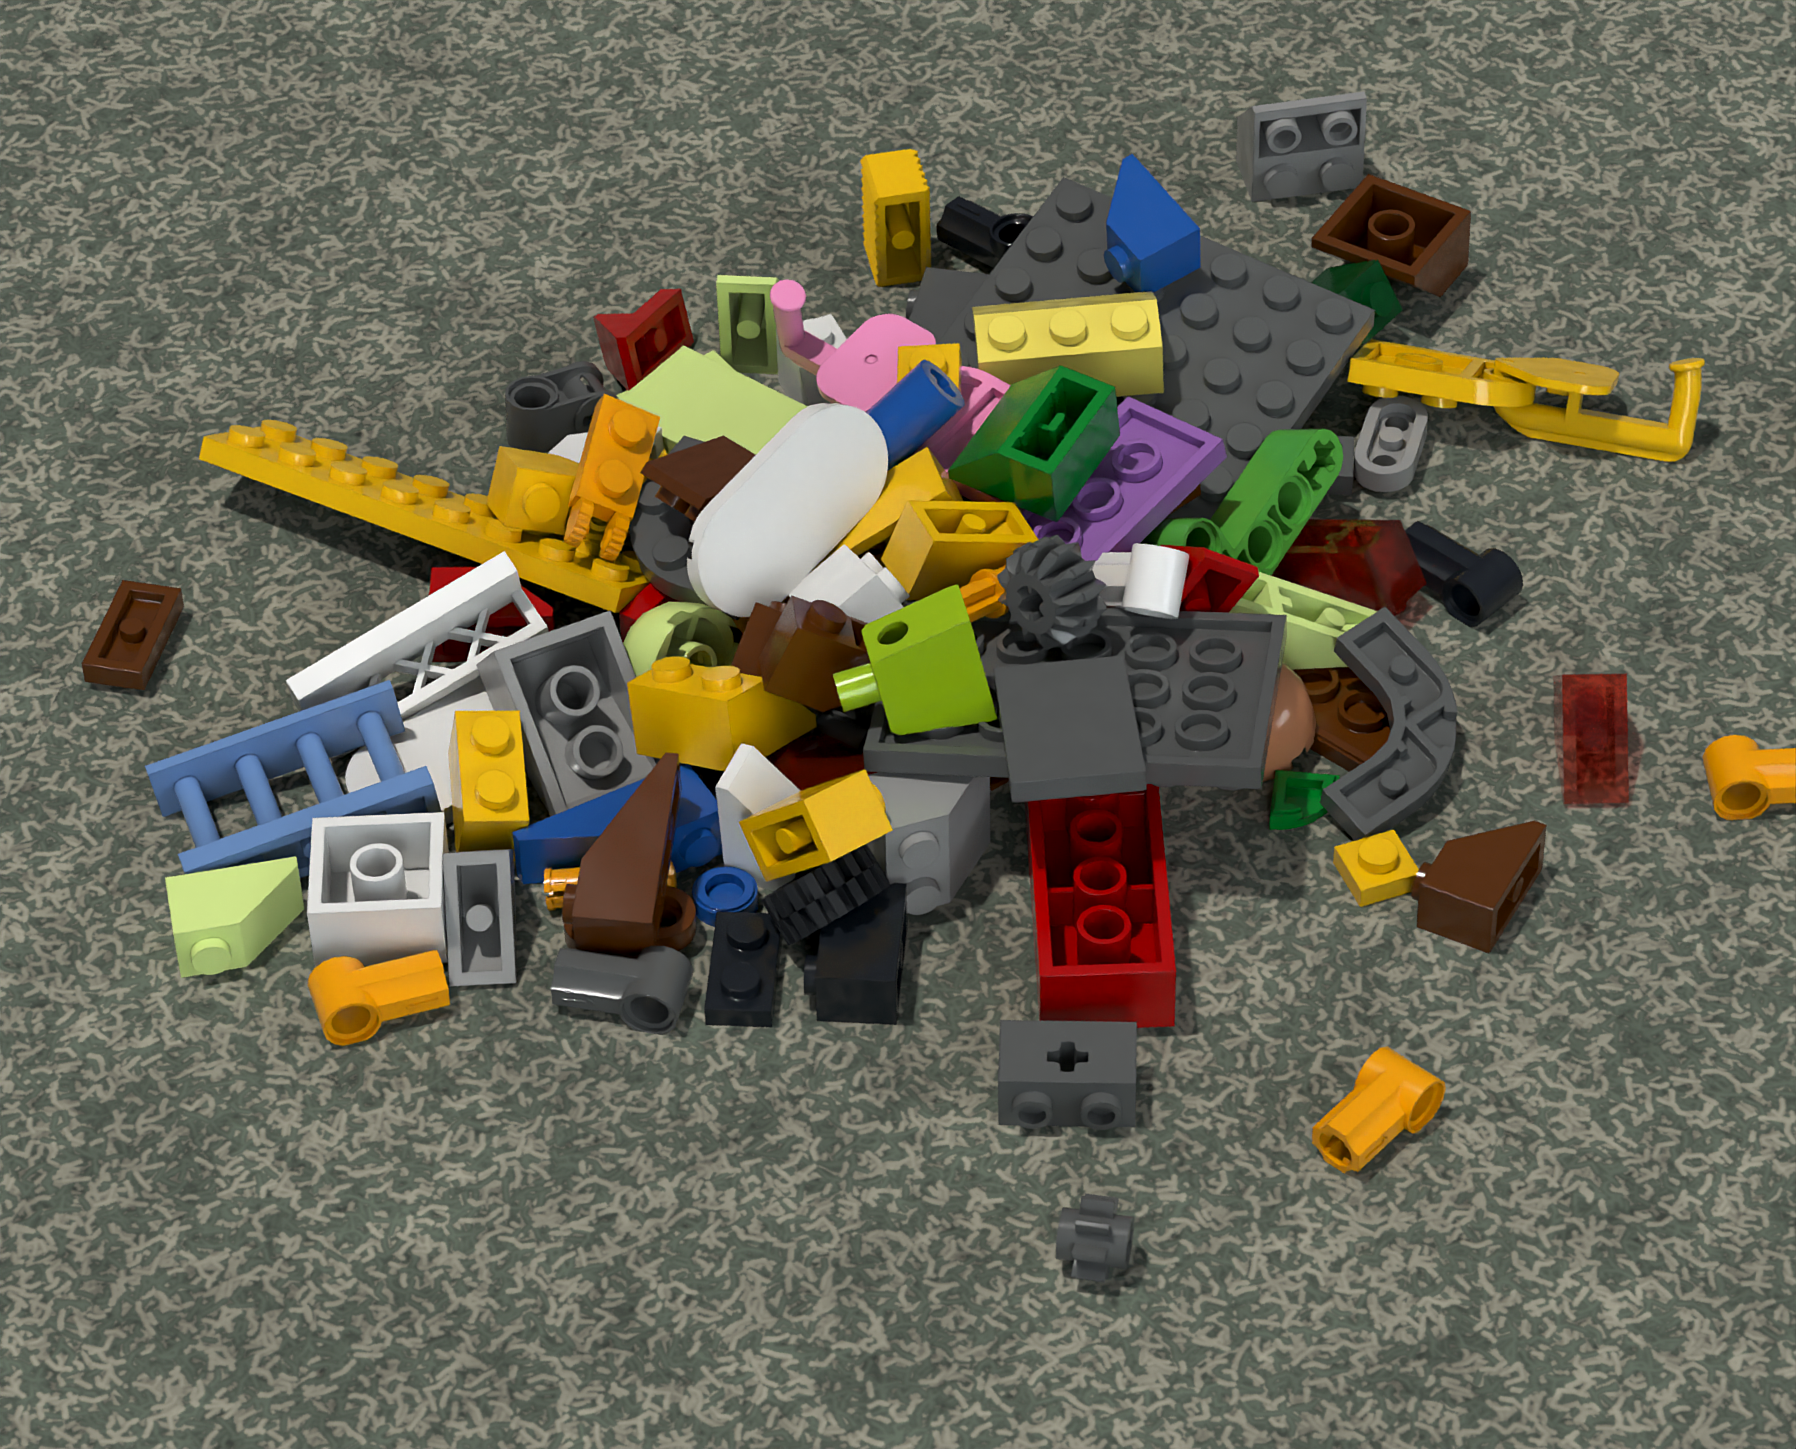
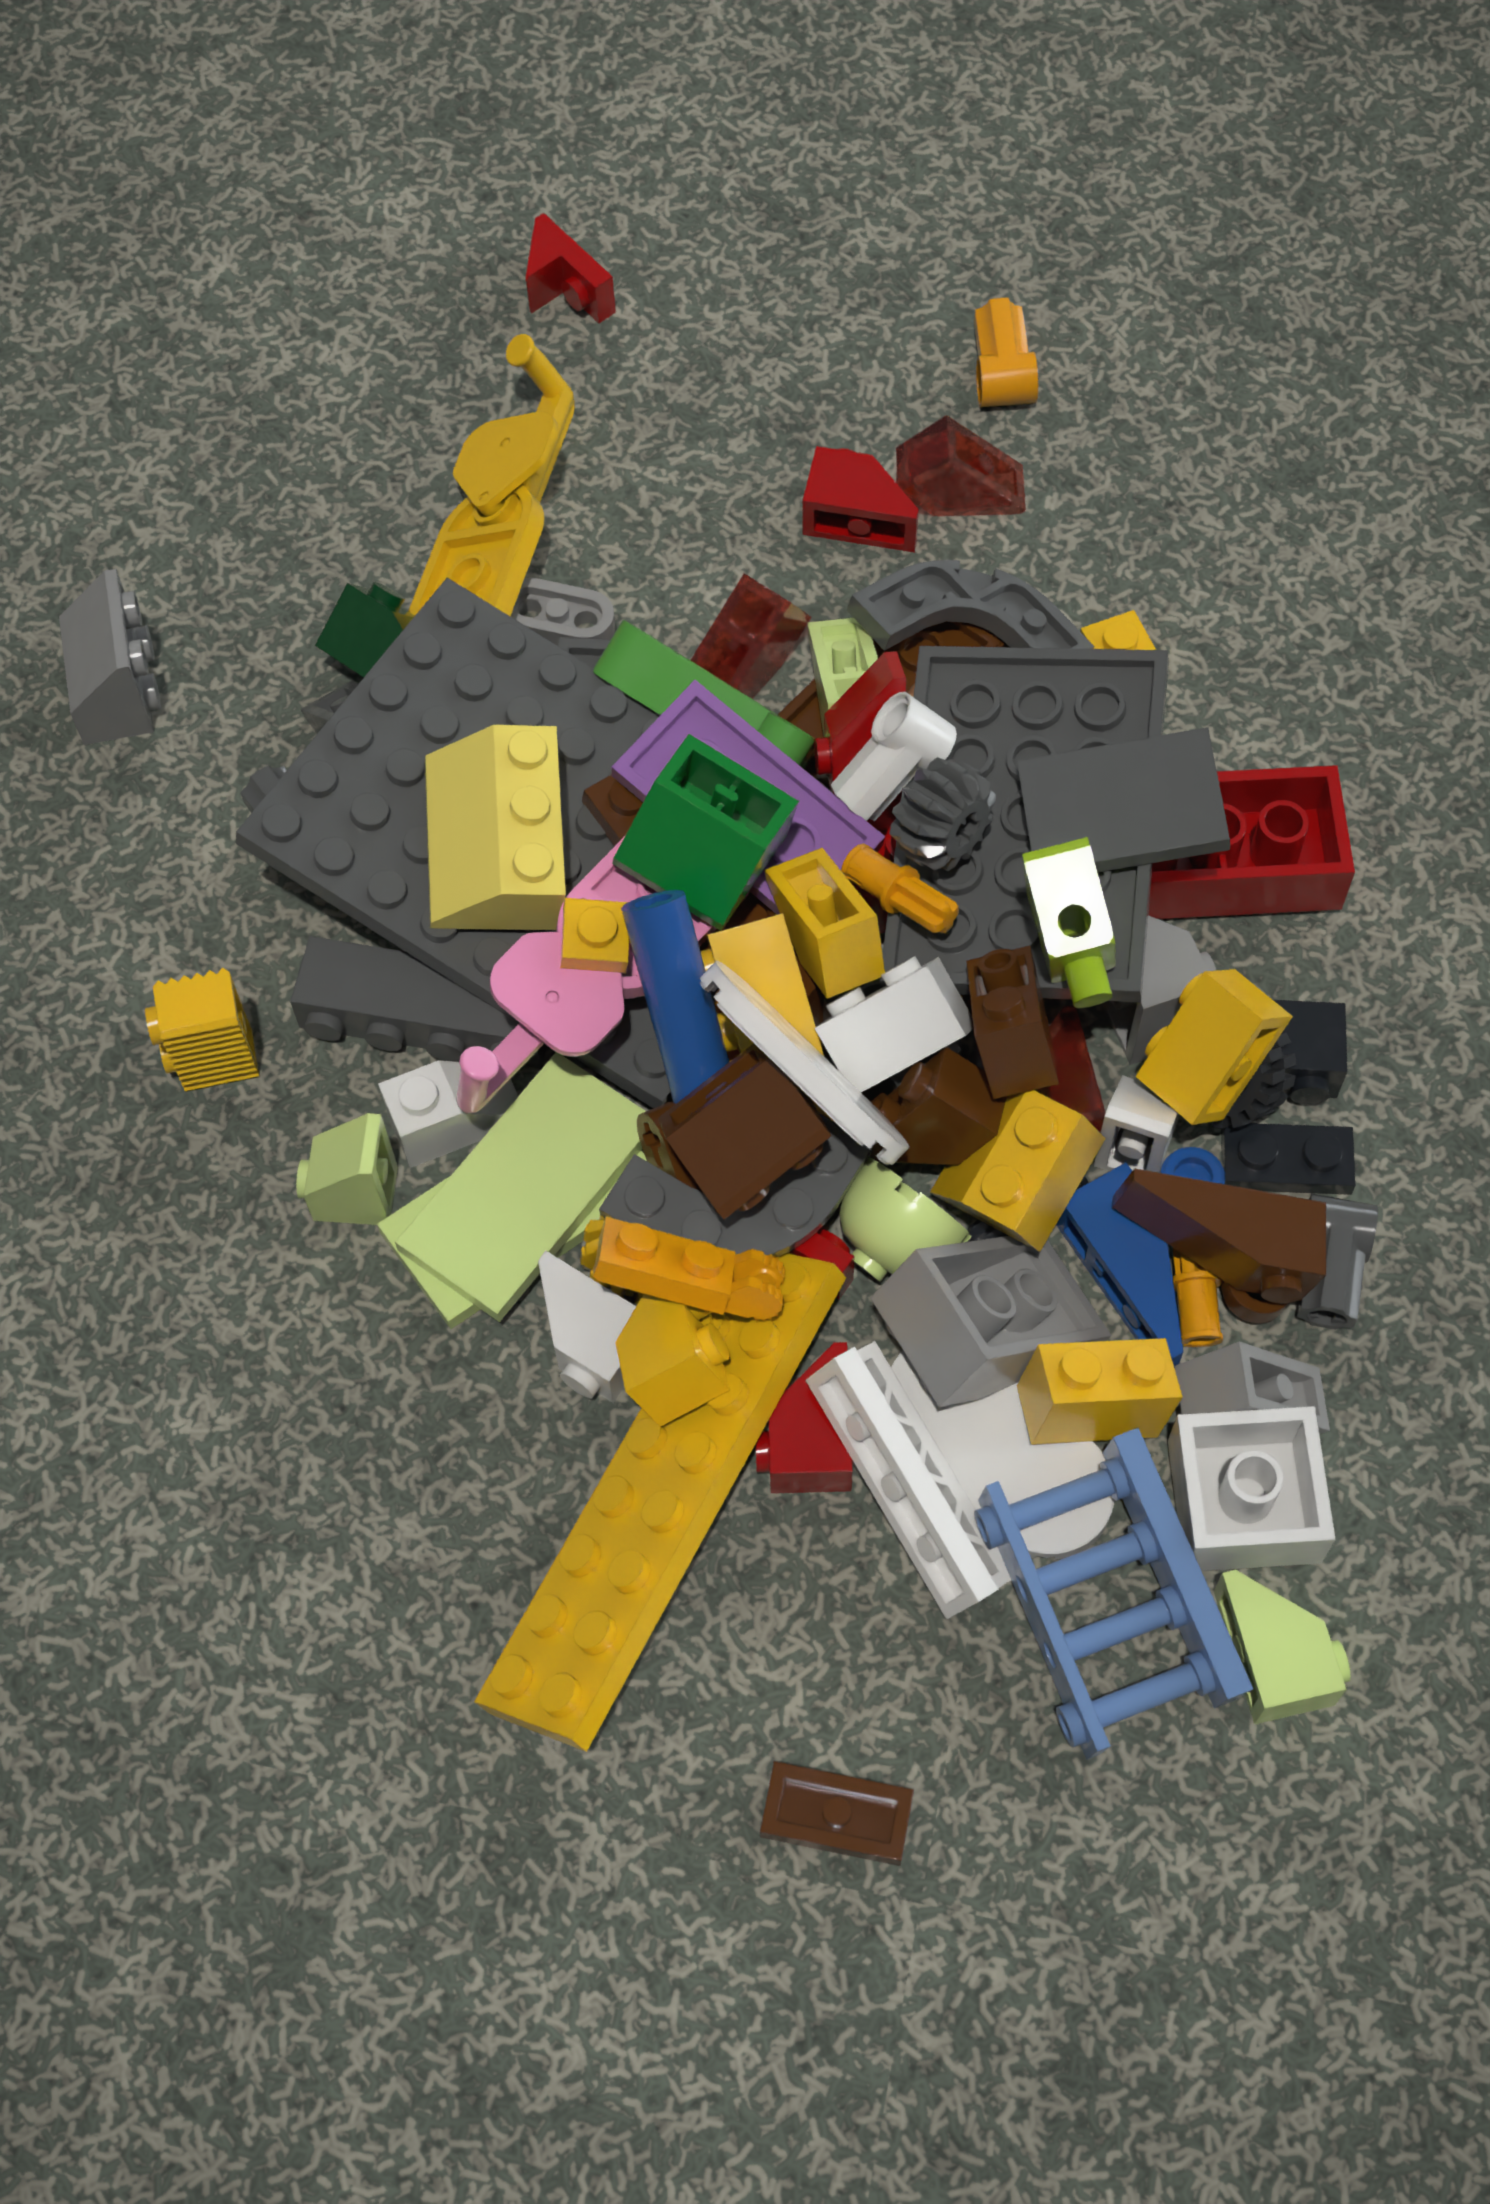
camera: 90 degrees left, 20 degrees up
(358, 998) = (1374, 1506): light orange piece -> none
(552, 405) = (466, 1367): dark grey piece -> none
(644, 339) = (381, 1297): red slope -> none
(979, 230) = (217, 945): black piece -> none
(1067, 1074) = (1415, 877): dark grey brick -> none
(1148, 232) = (357, 744): blue slope -> none
(1385, 1100) = (1409, 639): light orange piece -> none
(1409, 233) = (281, 584): reddish brown slope -> none
(1468, 582) = (753, 549): black piece -> none
(1479, 883) = (1152, 561): reddish brown slope -> none
(1551, 639) = (857, 502): none -> red slope

